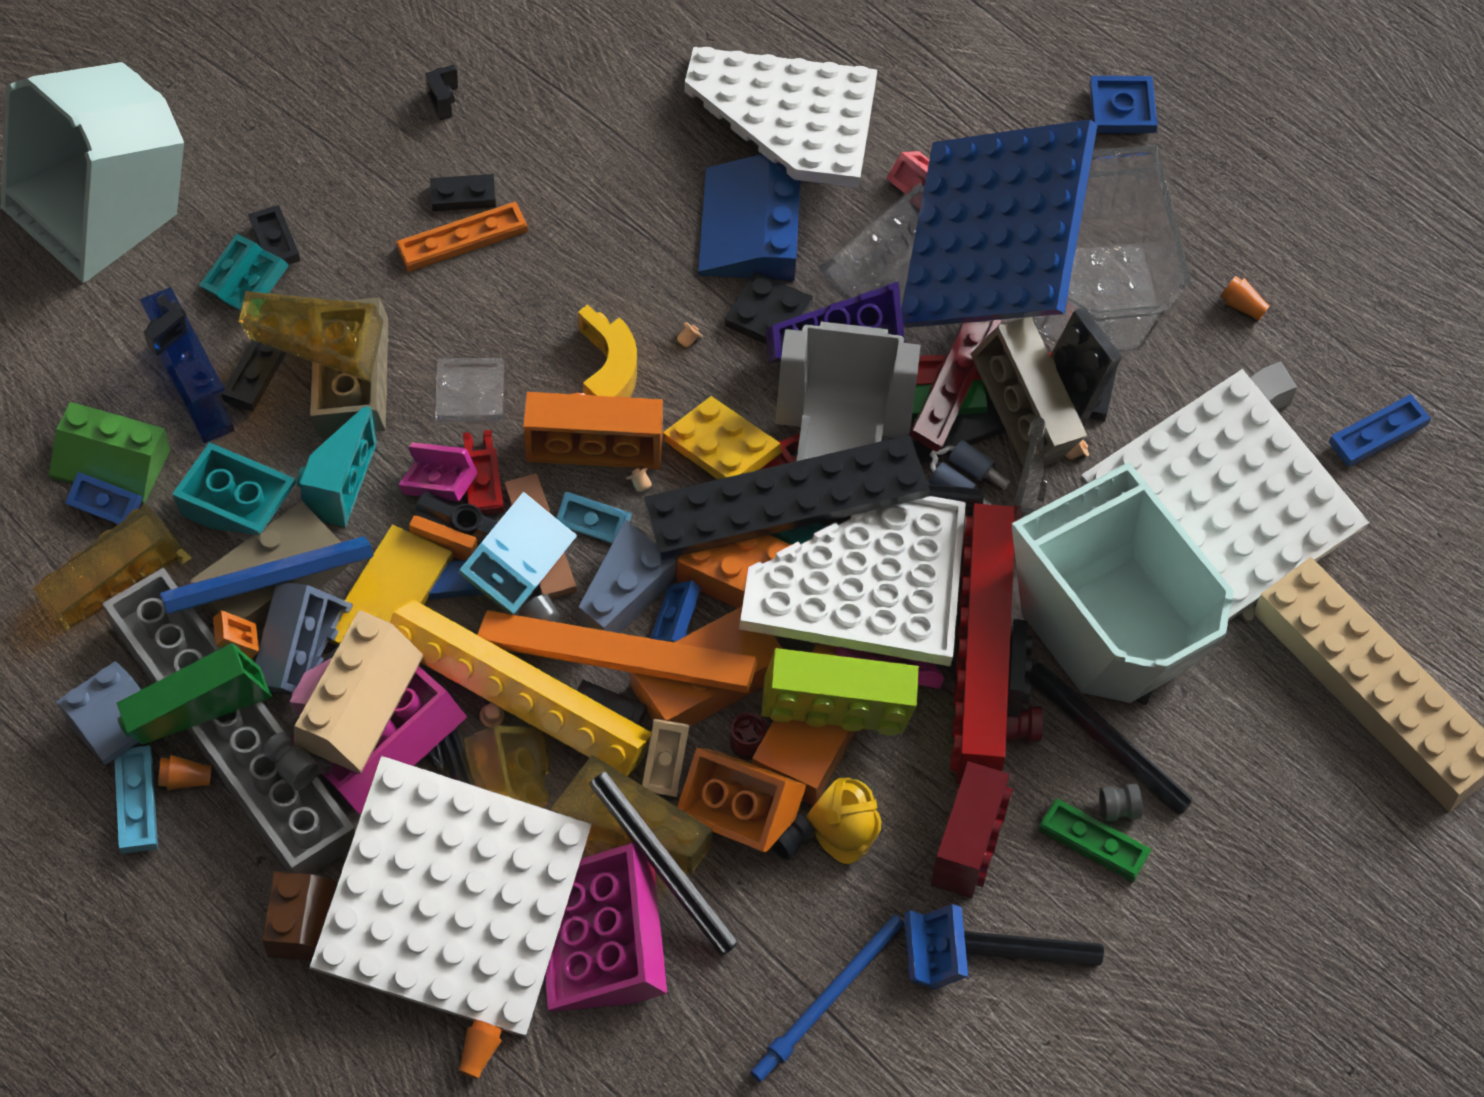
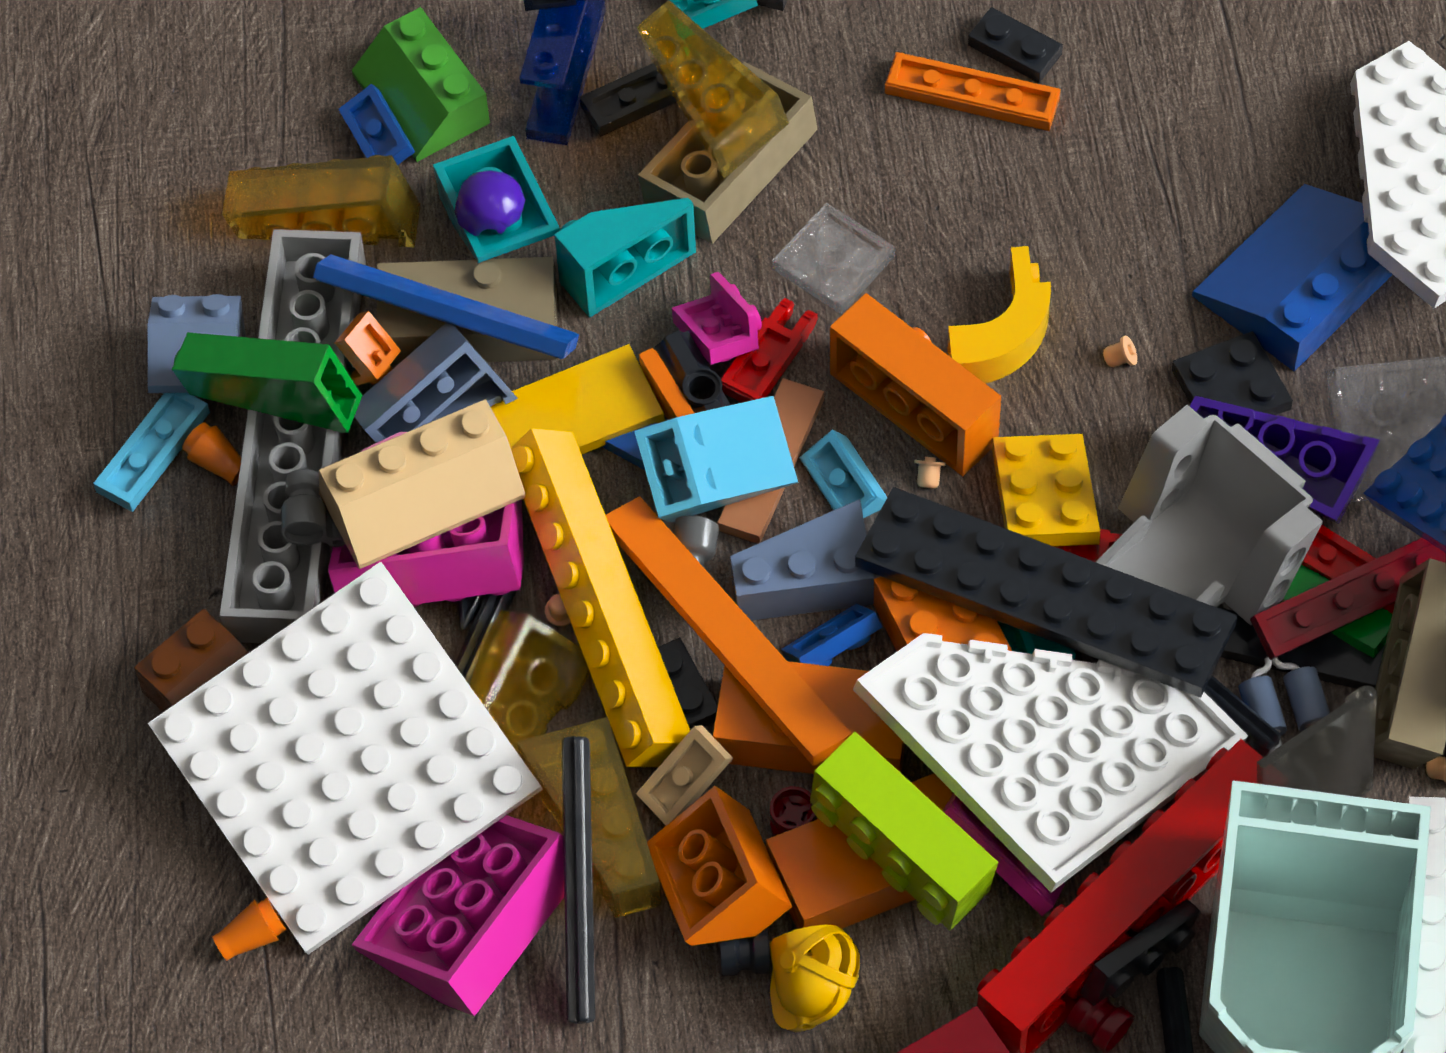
camera: 45 degrees right, 0 degrees up
(237, 492) = (489, 202): none -> dark purple hair

